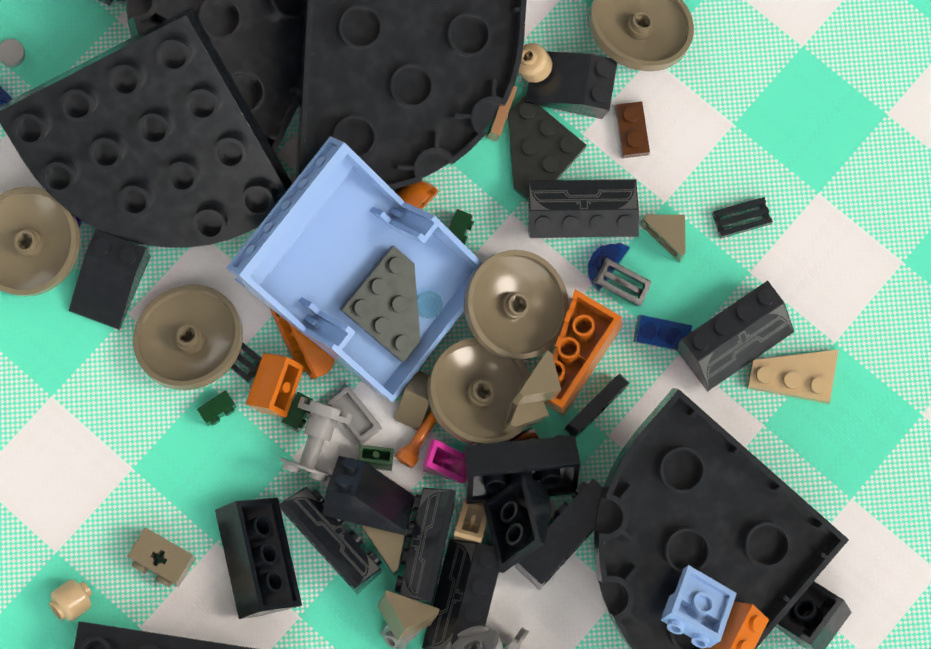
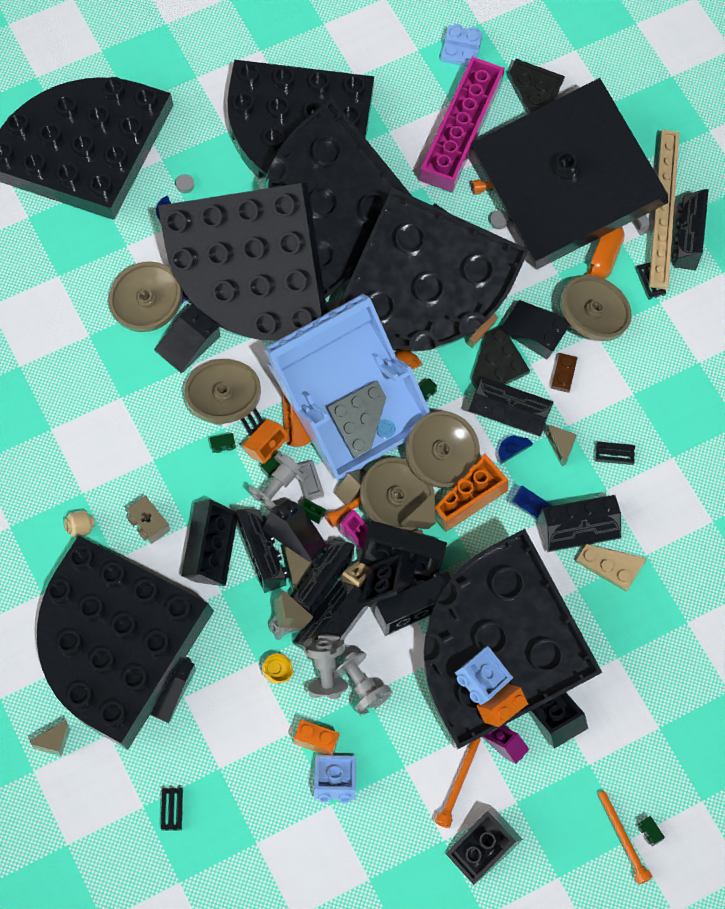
camera: 20 degrees right, 10 degrees down
(535, 63) = (515, 304): tan head -> none
(541, 383) = (436, 499): dark tan slope -> none
(596, 406) = (470, 533): black beam -> none
(602, 272) = (507, 450): tile -> none

